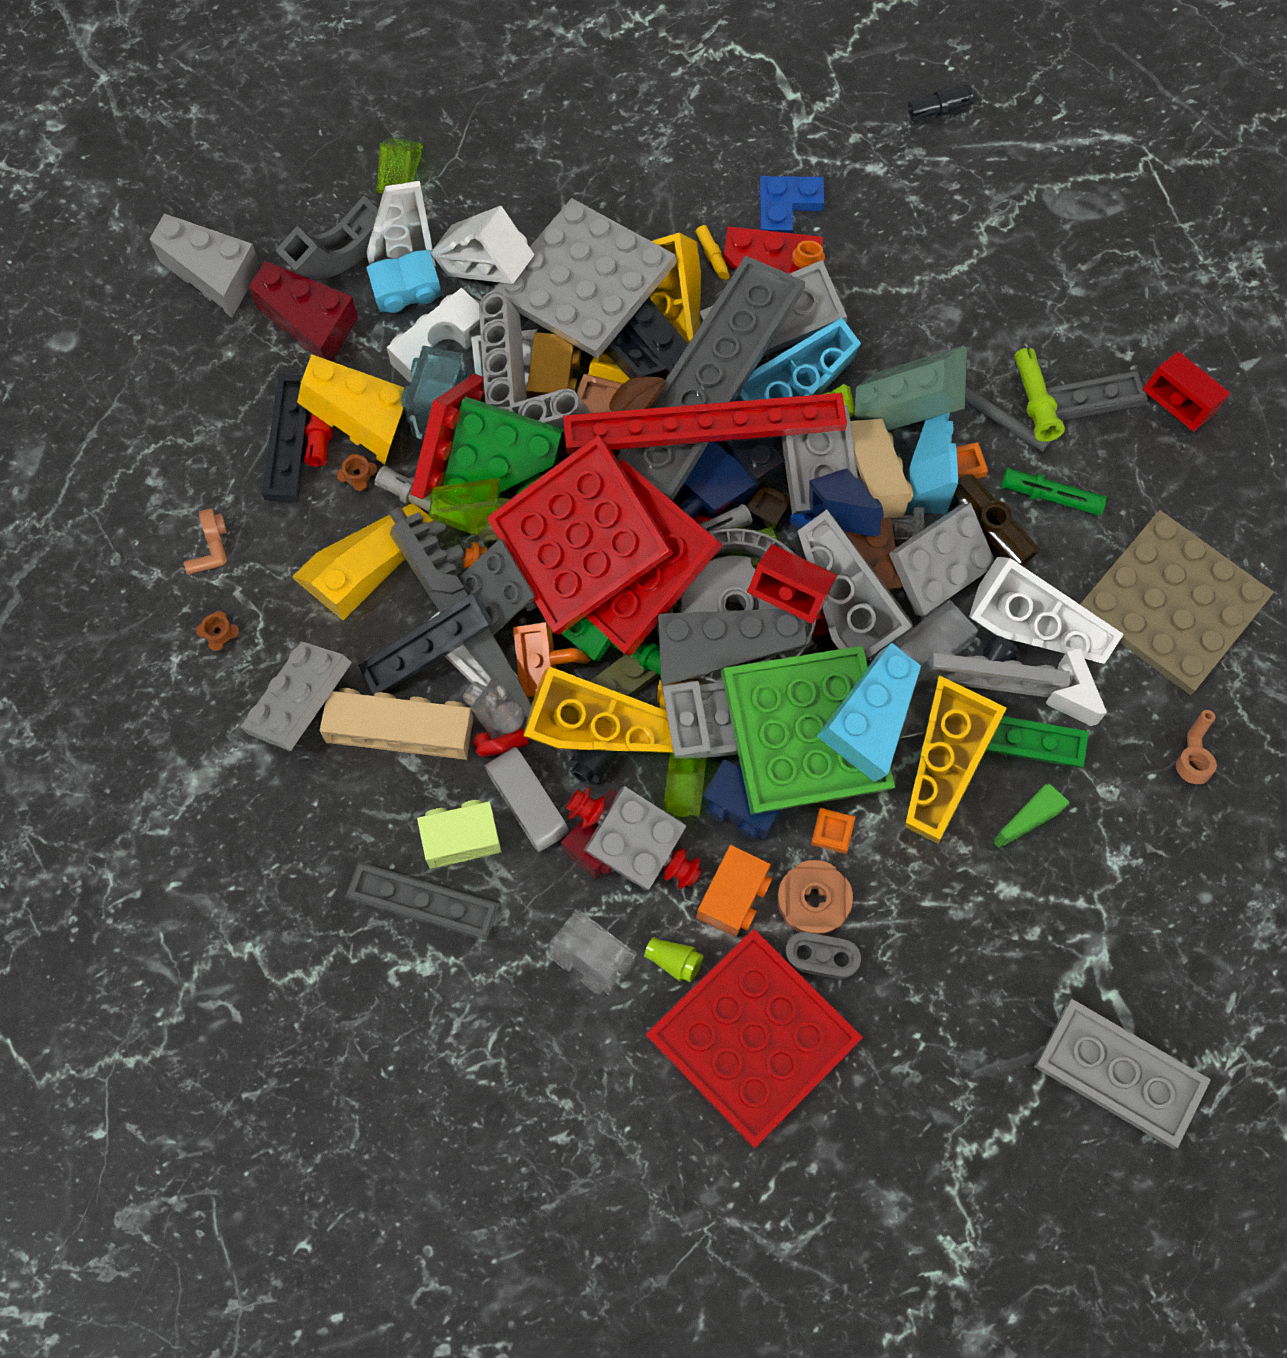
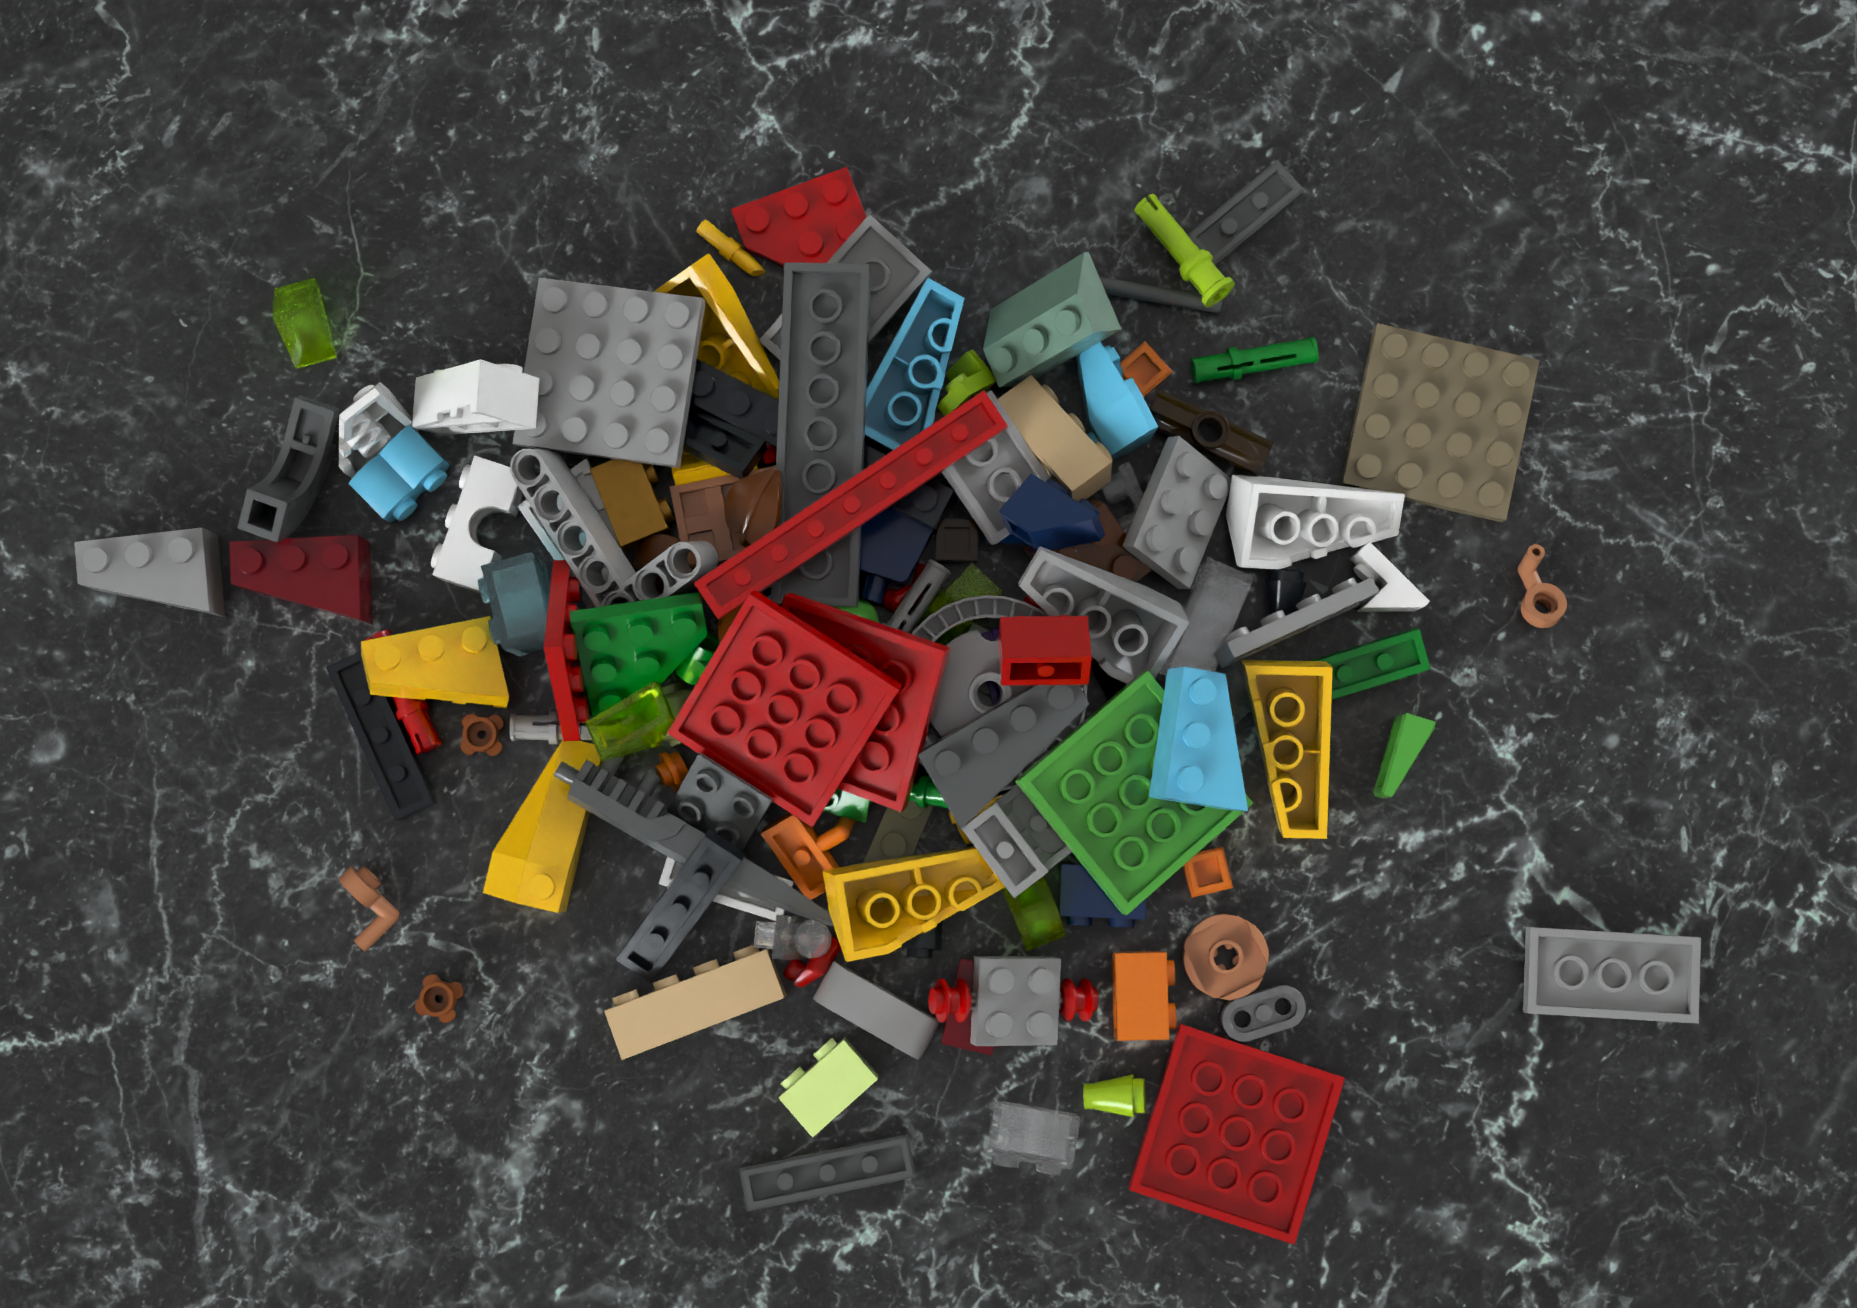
camera: 30 degrees left, 15 degrees up
(296, 695) = (571, 1031): light grey plate -> none
(786, 194) = (770, 137): blue plate -> none
(807, 253) = (844, 199): orange plate -> none
(1186, 391) = (1344, 163): red brick -> none

